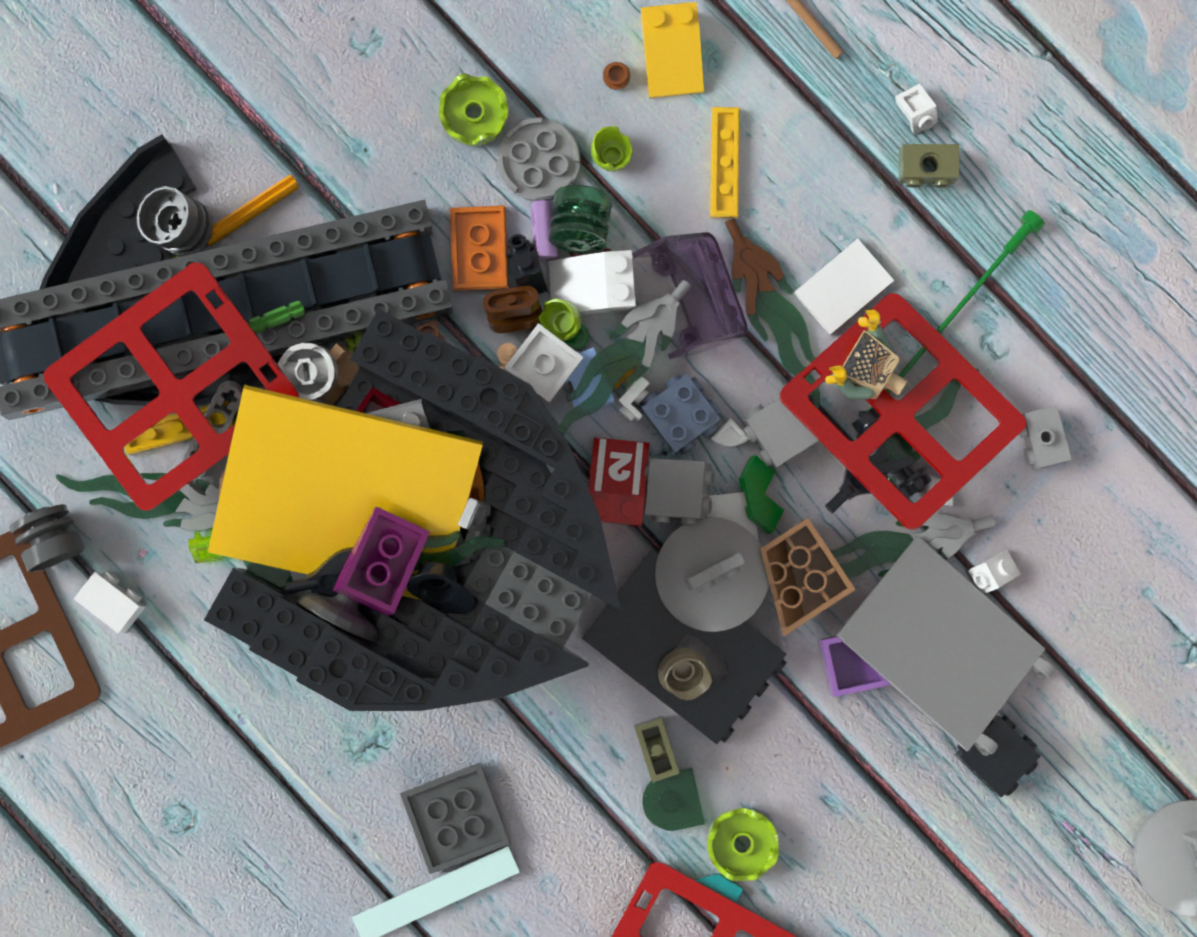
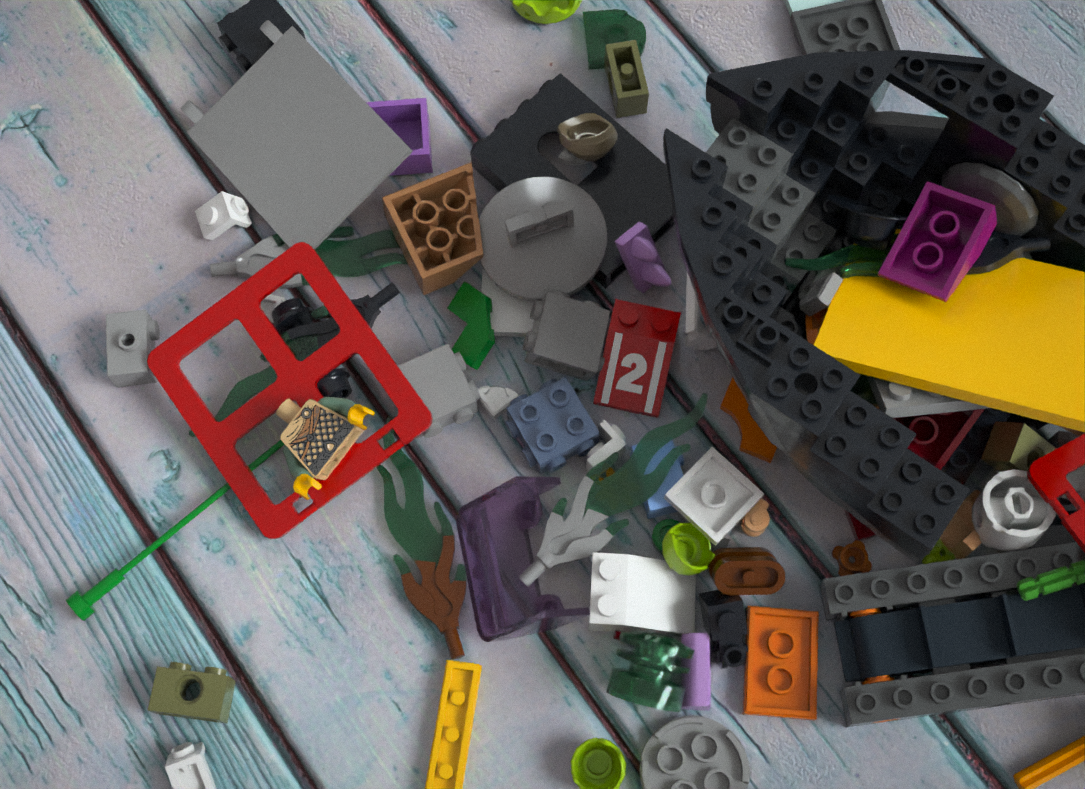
camera: 175 degrees left, 15 degrees down
(625, 569) = (642, 258): none -> lavender tile
(843, 286) = (330, 556): white tile -> none

